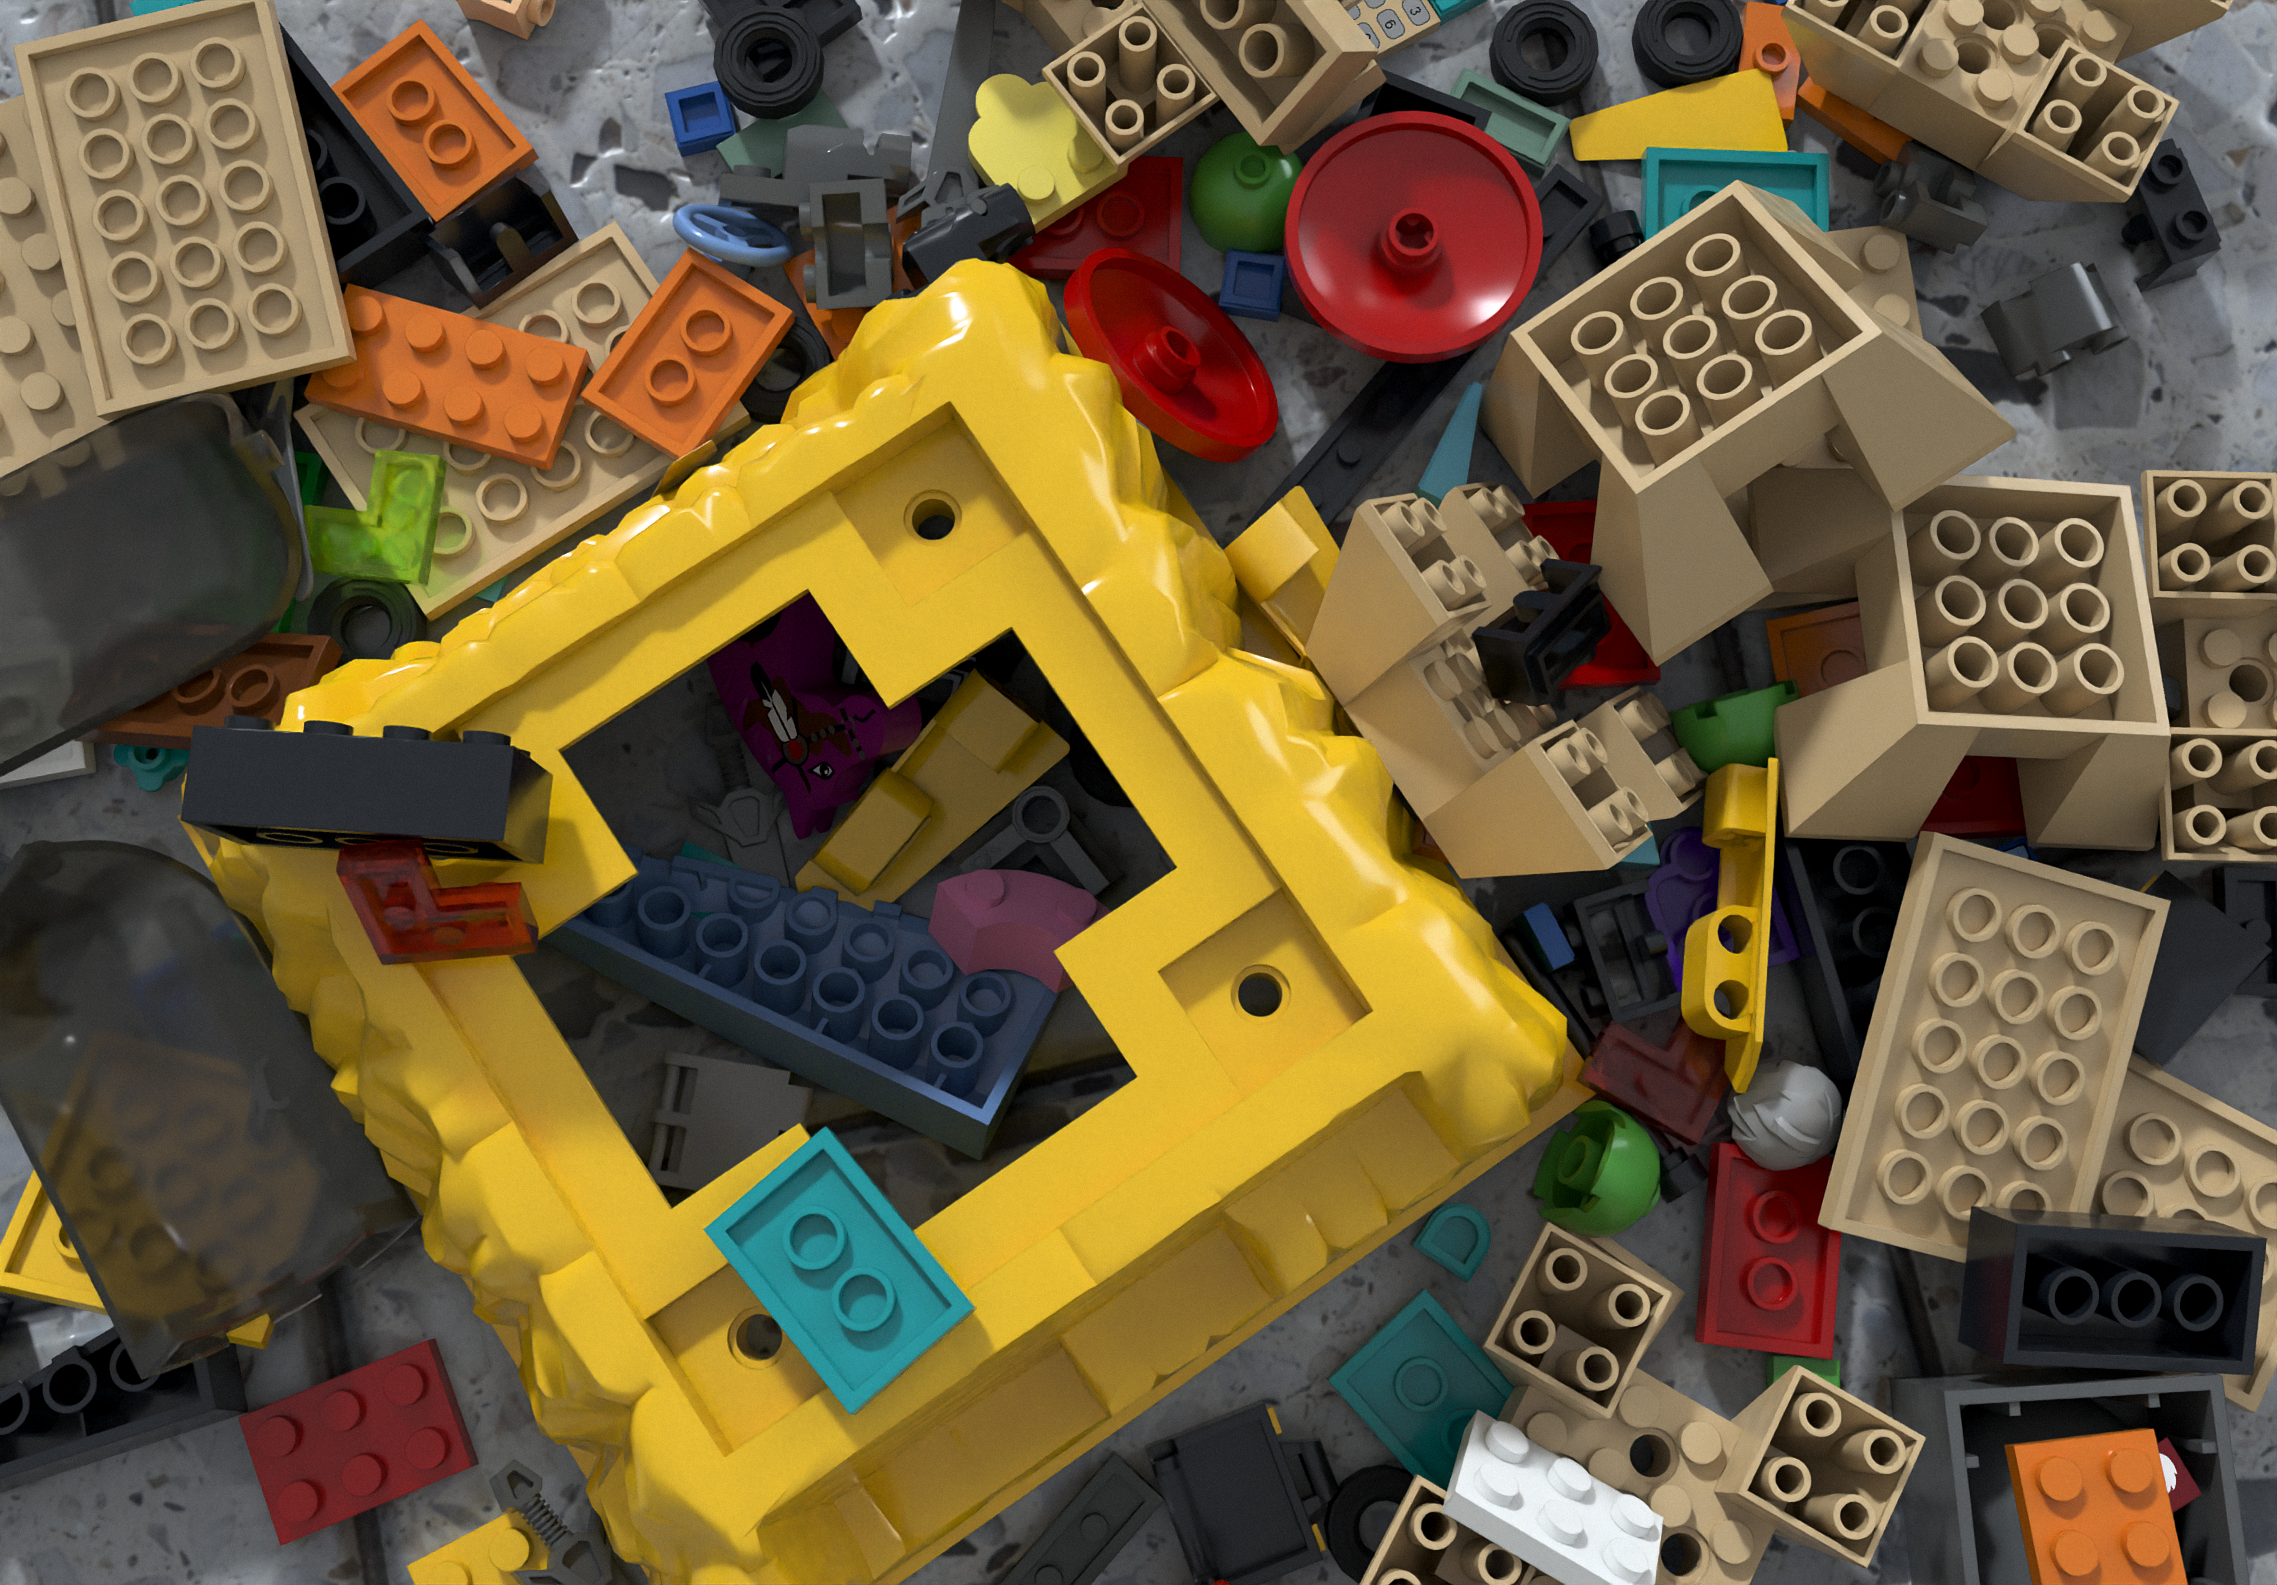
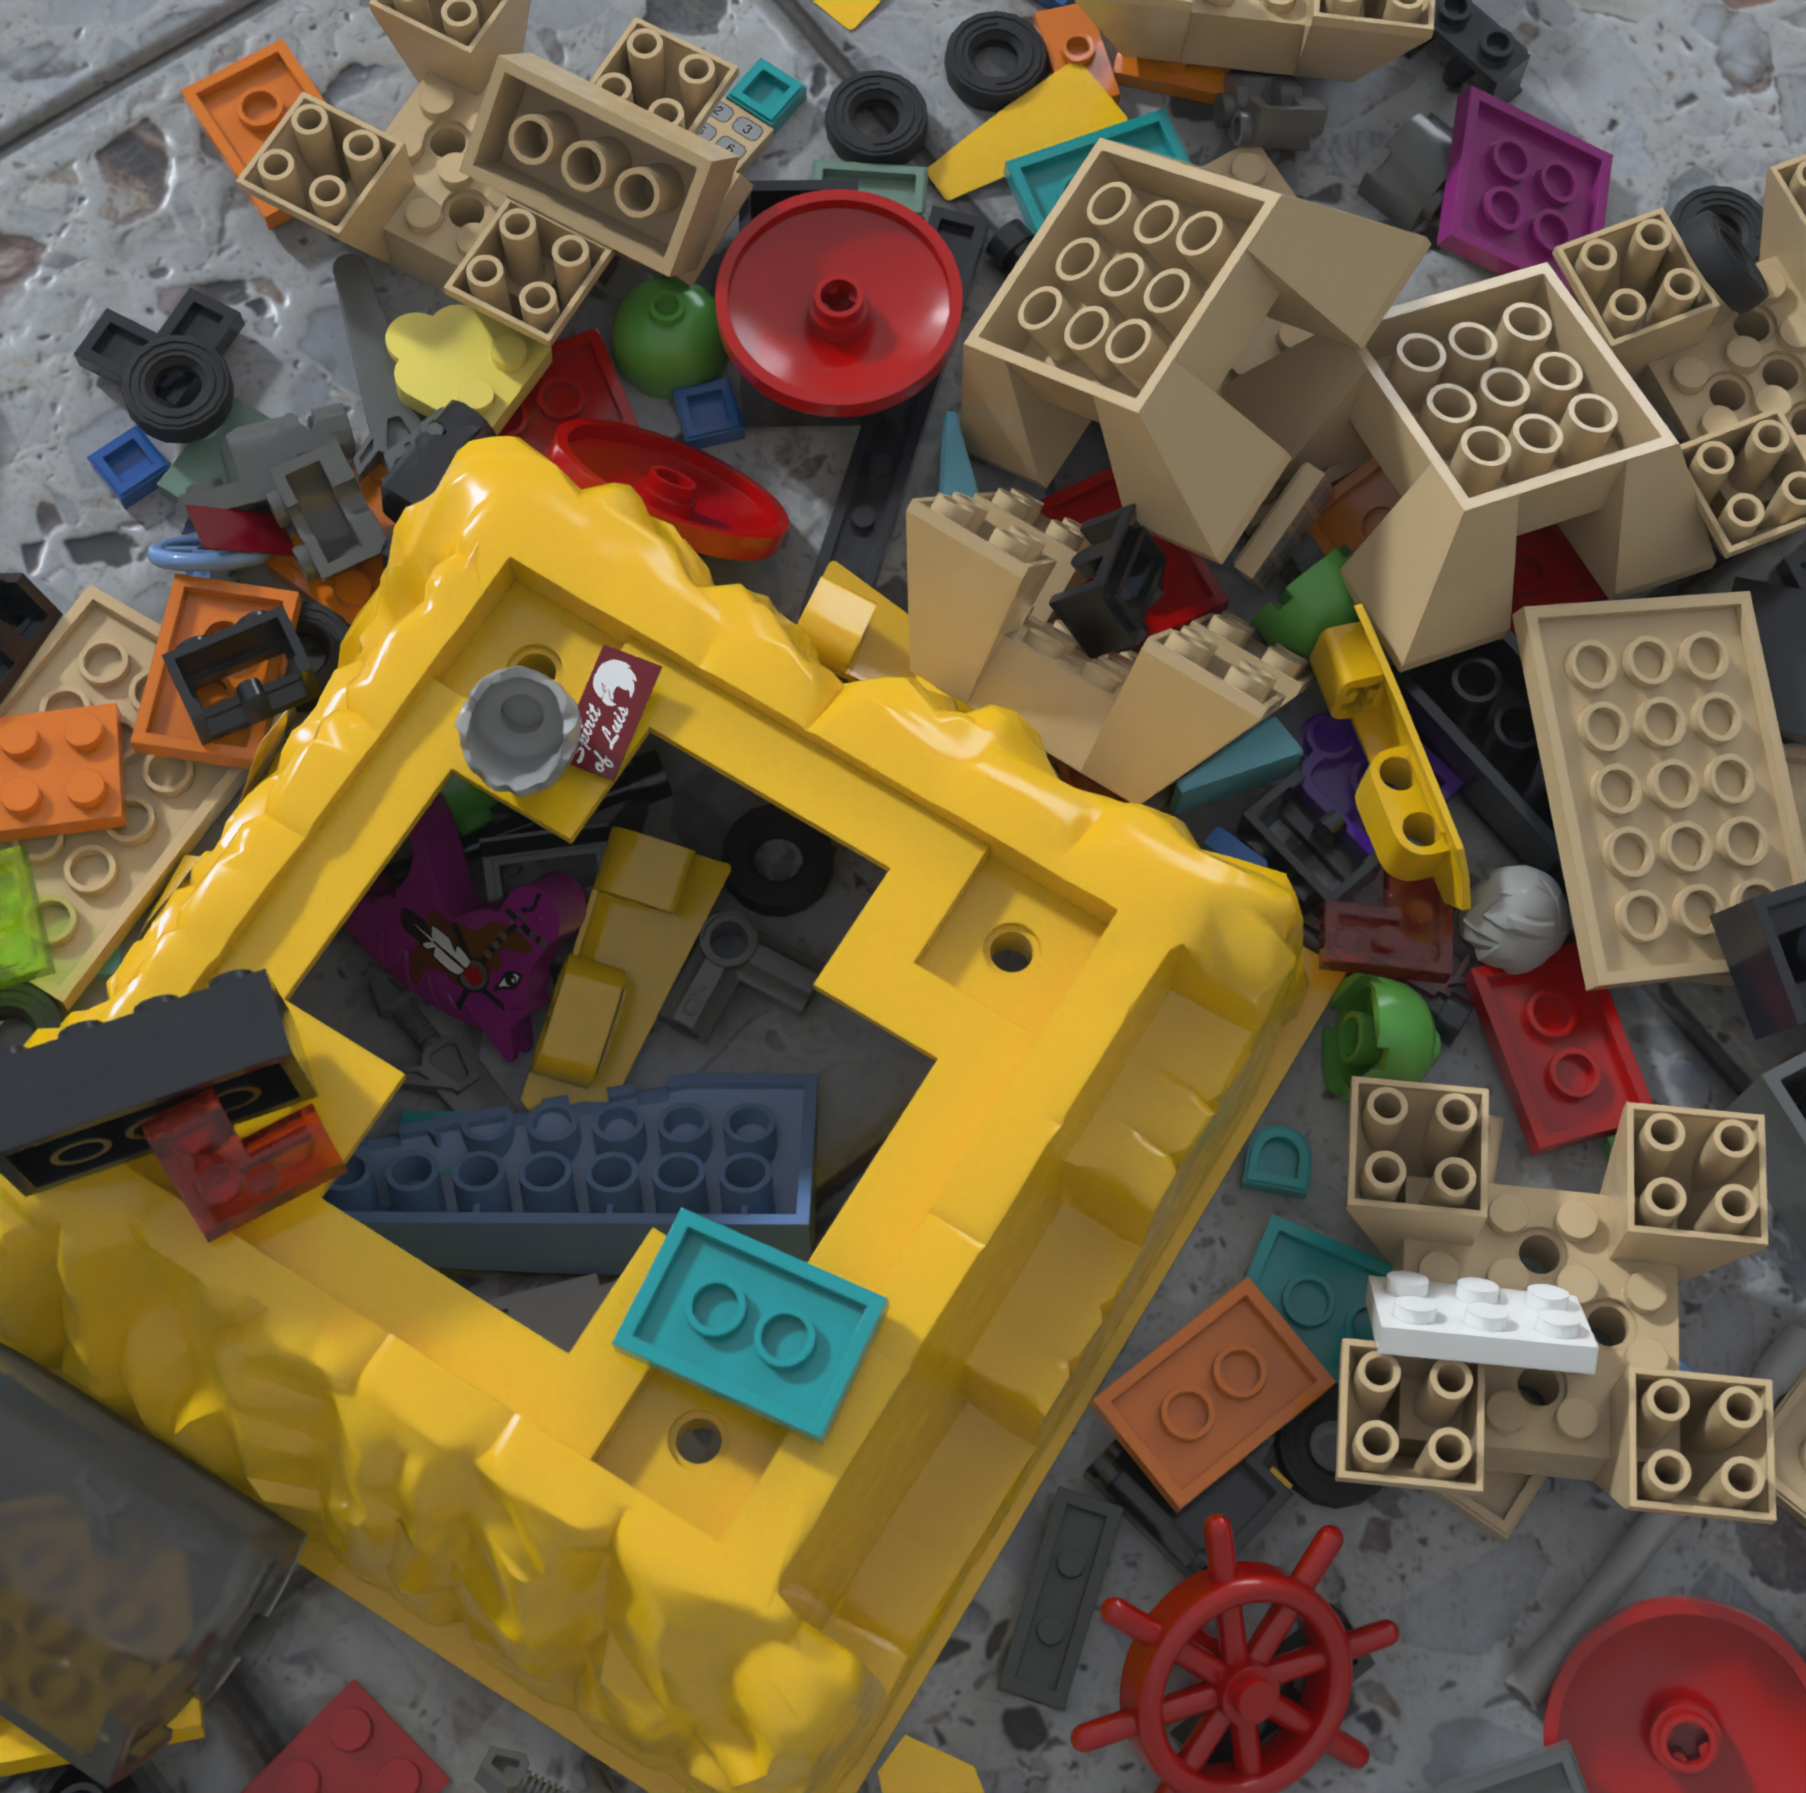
camera: 25 degrees left, 10 degrees down
(562, 549) = (179, 874): none -> yellow sticker
(677, 346) = (234, 649): none -> black window
(762, 228) = (239, 530): none -> dark red sticker
(874, 589) = (519, 730): none -> light grey hair
(976, 598) = (612, 710): none -> dark red sticker
(1011, 922) = (756, 1046): bright pink brick -> none
(1289, 1440) = (1212, 1394): none -> orange plate
(1742, 637) = (1284, 527): none -> tan tile
(2142, 386) = (1518, 187): none -> magenta plate

